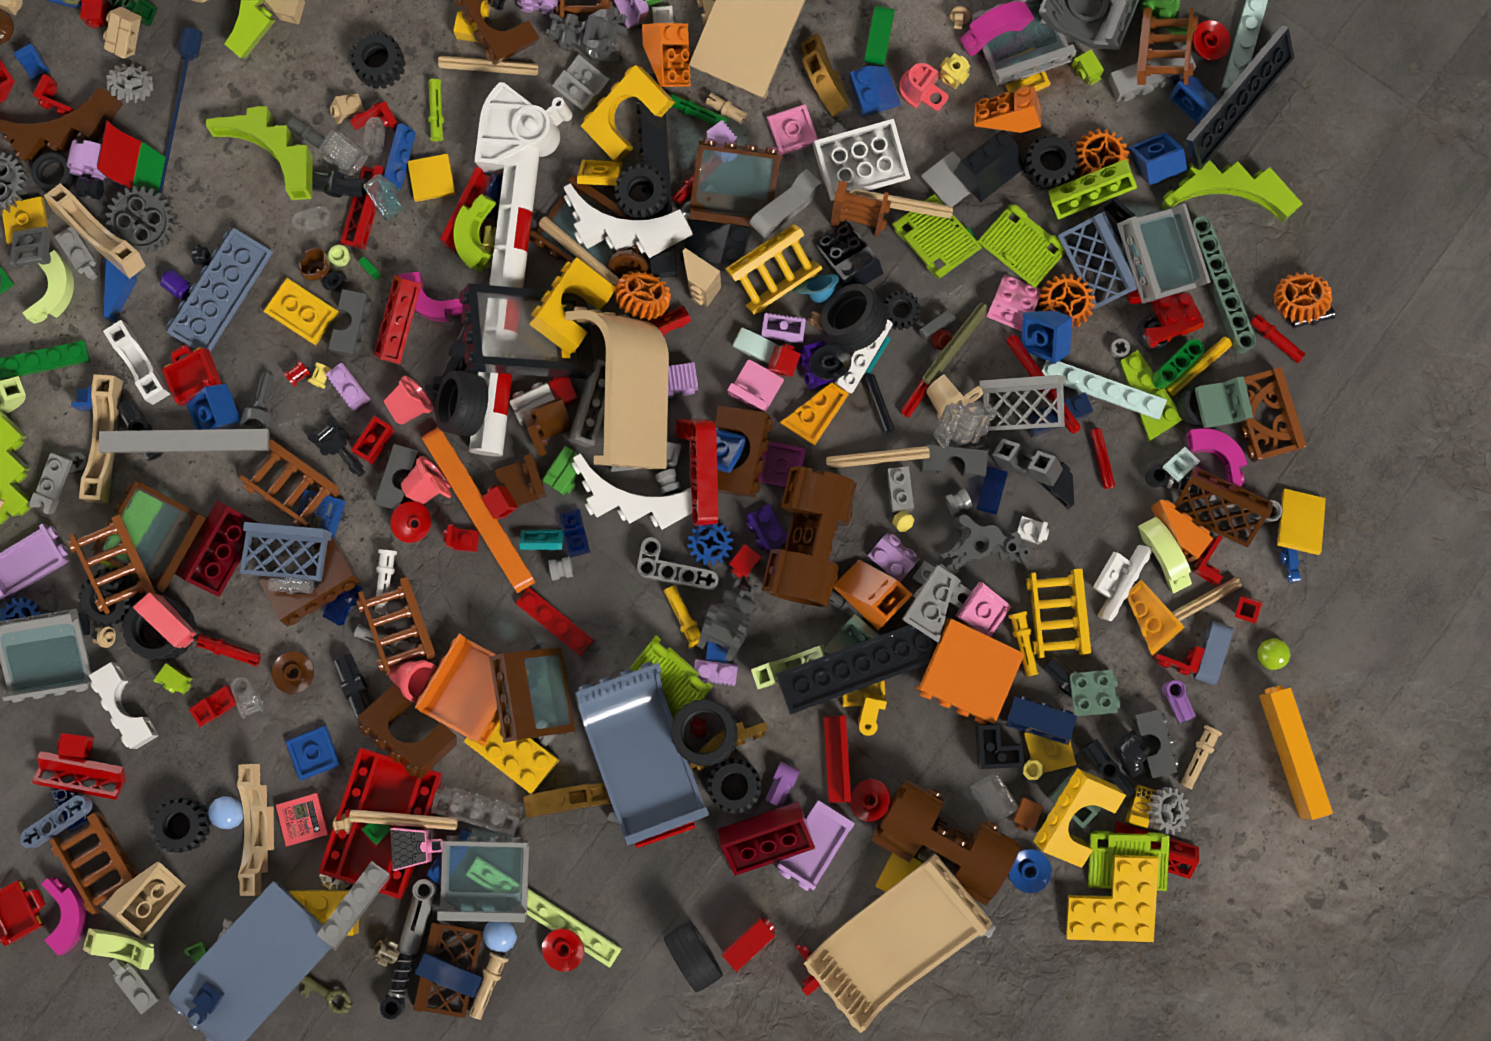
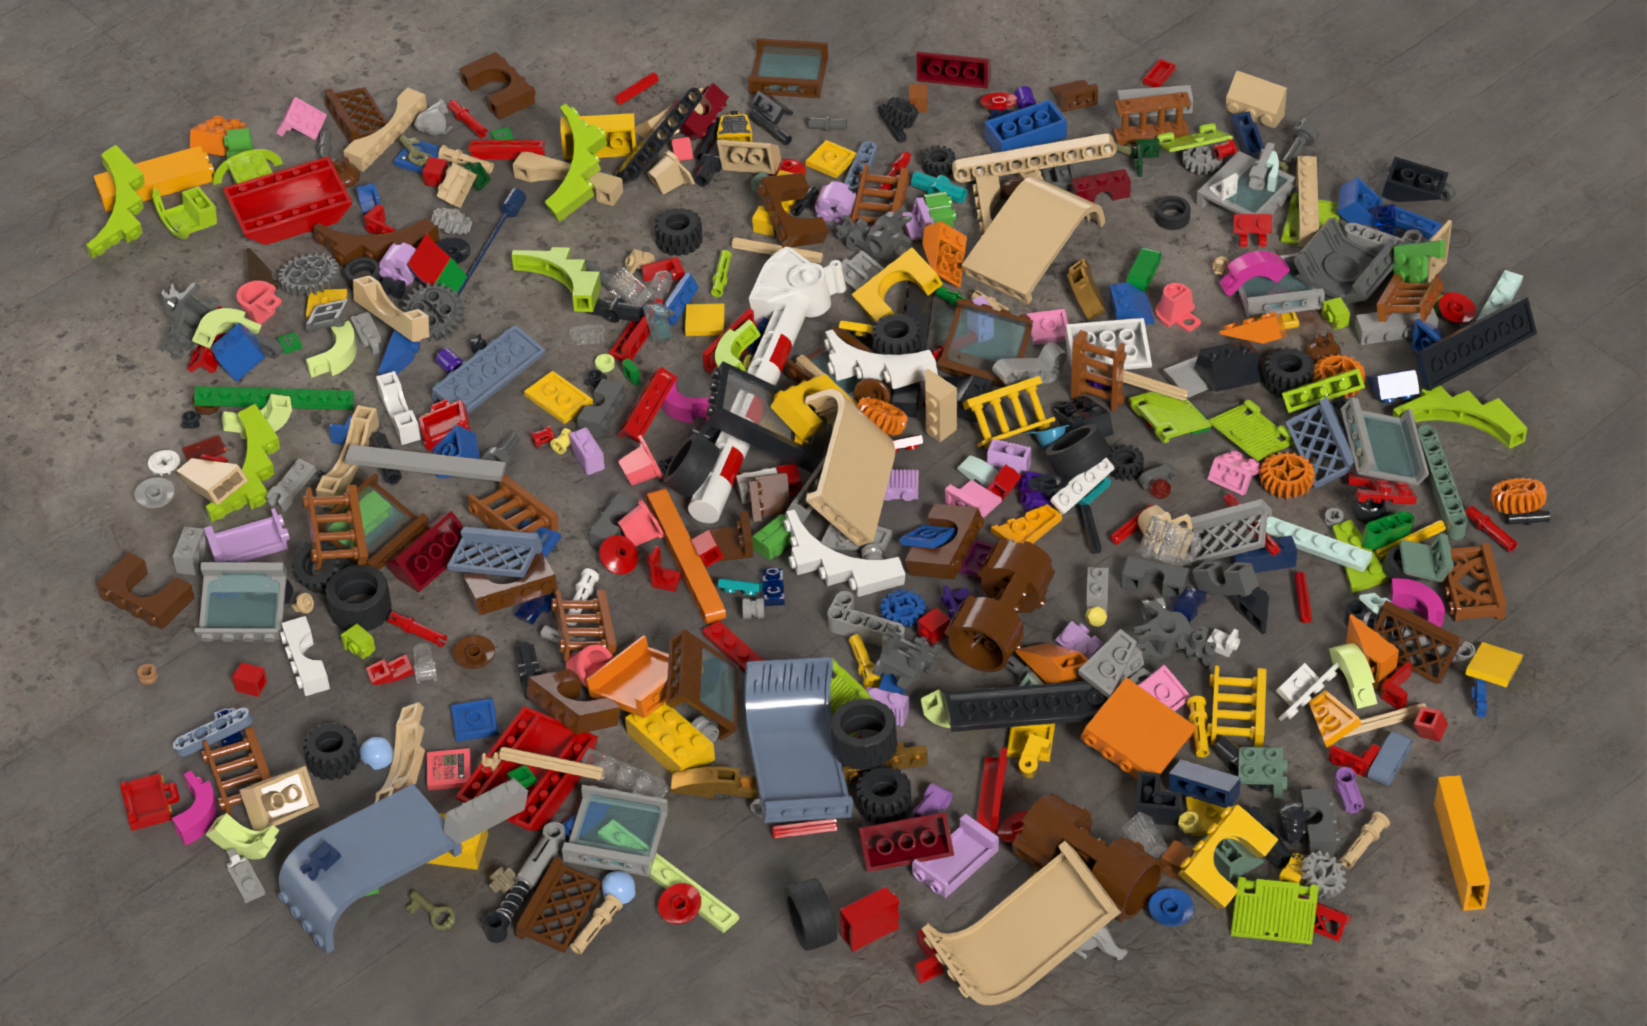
camera: 10 degrees right, 35 degrees down
(82, 771) = (237, 695): red fence -> none
(137, 117) = (455, 248): none -> black dish
(165, 620) = (371, 572): coral slope -> none
(291, 585) = (506, 574): clear pin -> none
(315, 265) = (582, 362): reddish brown hair -> none
(336, 445) = (563, 493): black piece -> none
(373, 440) = (600, 489): red brick -> none
(412, 847) = (554, 782): torso -> none
(448, 975) = (559, 901): dark blue slope -> none
(703, 468) = (909, 520): red beam -> none
(815, 320) = (1041, 460): medium nougat bush -> none
(878, 457) = (1091, 561): tan axle -> none
(954, 70) = (1209, 300): light yellow brick -> none
(955, 343) = (1174, 490): olive axle -> none
(1047, 334) = (1263, 485): blue slope -> none
(1079, 125) = (1322, 346): none -> reddish brown hair
(1124, 914) = (1262, 958): yellow plate -> none
(1273, 654) = (1454, 765): lime hair -> none

